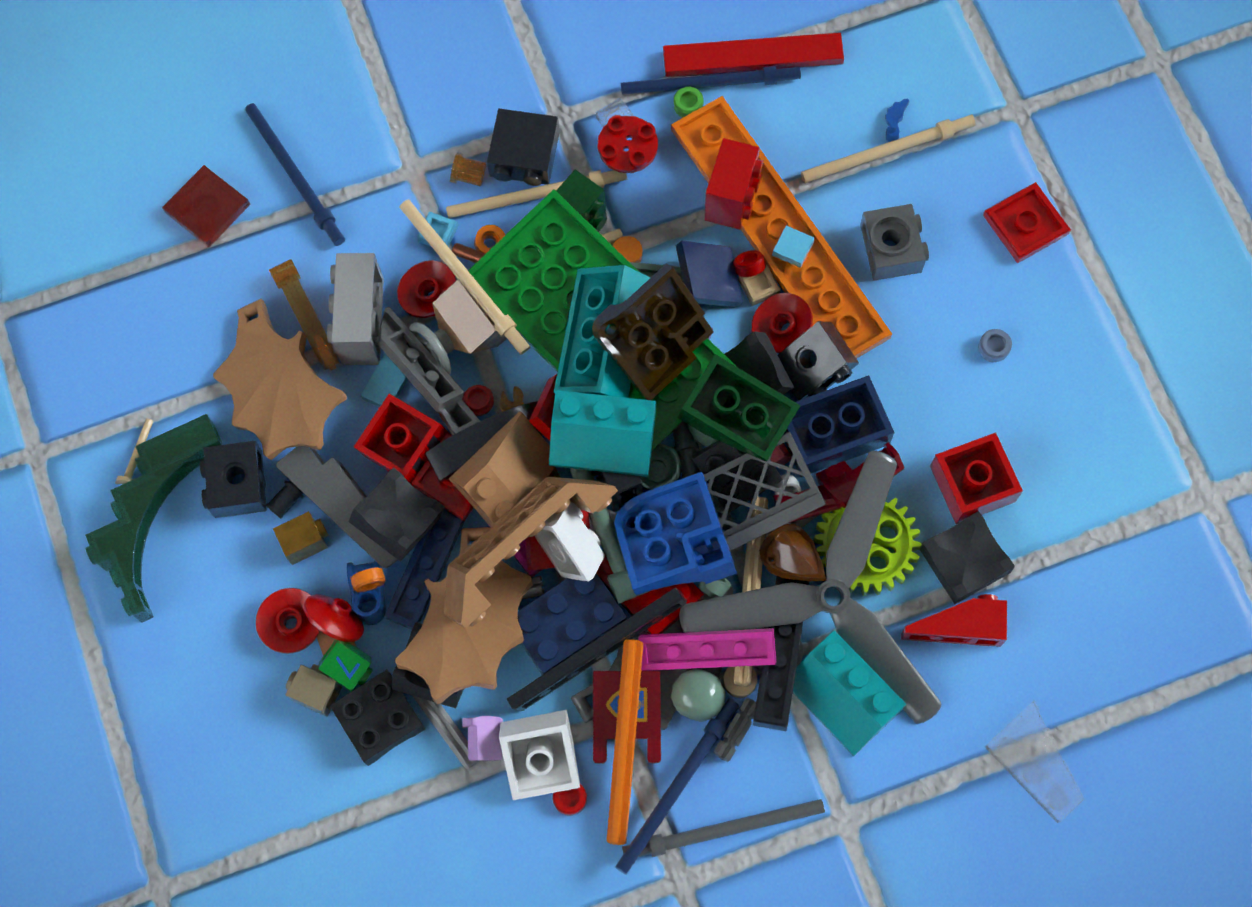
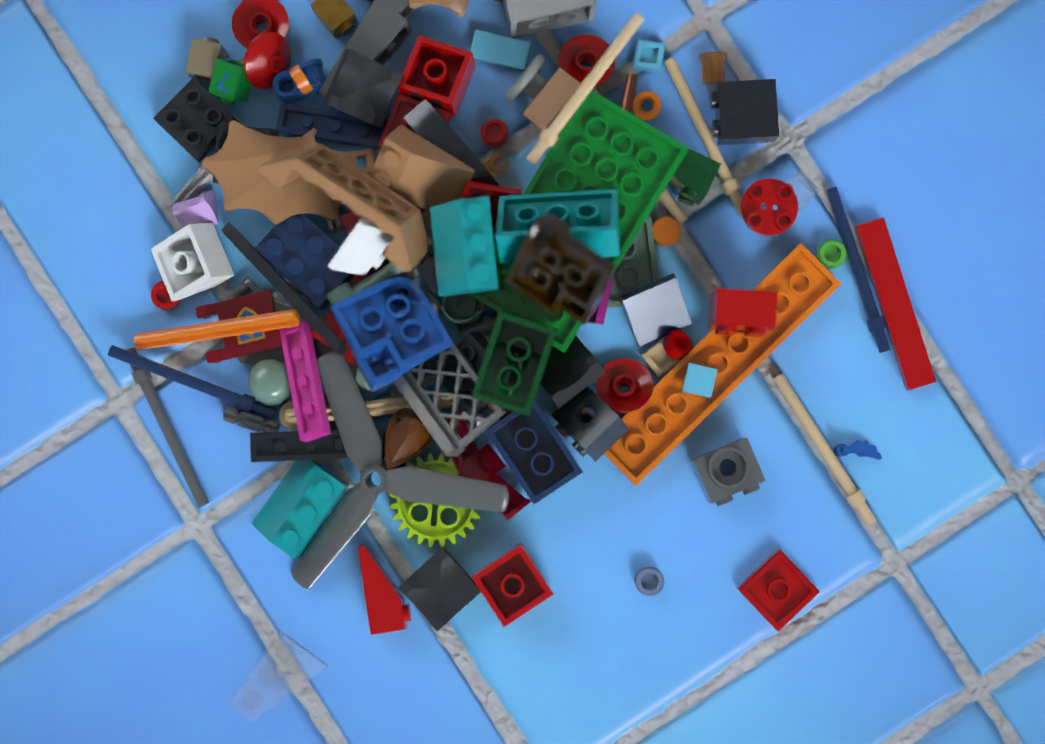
camera: 70 degrees right, 15 degrees up
(425, 373) = (498, 80): dark grey wedge -> none

